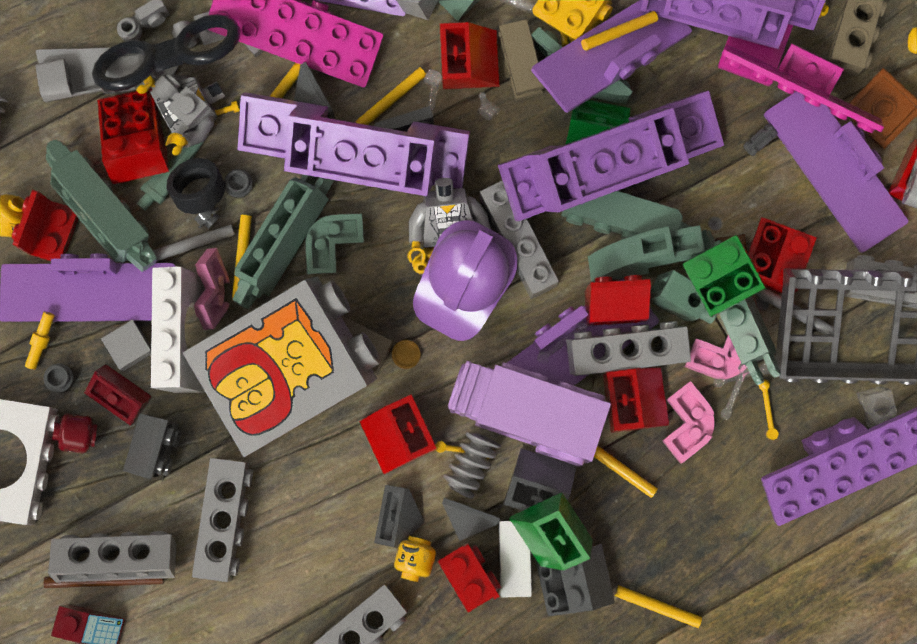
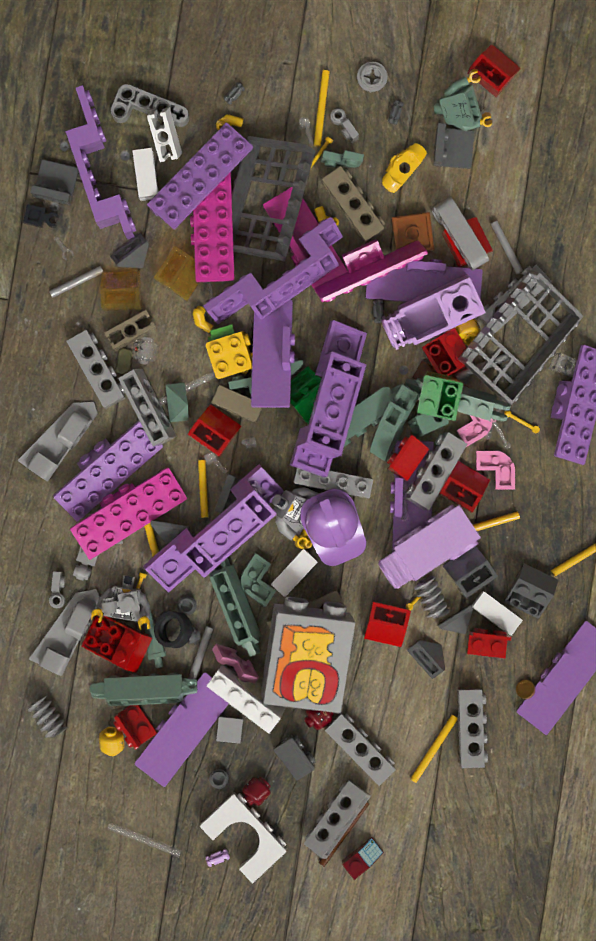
camera: 55 degrees left, 5 degrees up
(39, 340) = (191, 773): yellow bar -> none
(117, 394) = (251, 754): dark red slope -> none
(167, 53) = (92, 591): black bar -> none
(219, 440) = (318, 719): none -> dark red head
(242, 245) = (225, 631): yellow bar -> none
(290, 610) = (434, 748): none -> yellow bar
(373, 277) = (294, 573): none -> white piece
(406, 354) = (347, 587): pearl gold piece -> none
(415, 558) = (457, 664): yellow head -> none
(554, 533) = (501, 584): green slope -> none
(619, 30) = (264, 341): yellow bar -> none
(815, 197) = (433, 313): none -> lavender piece
(826, 255) = (468, 331): none -> yellow head

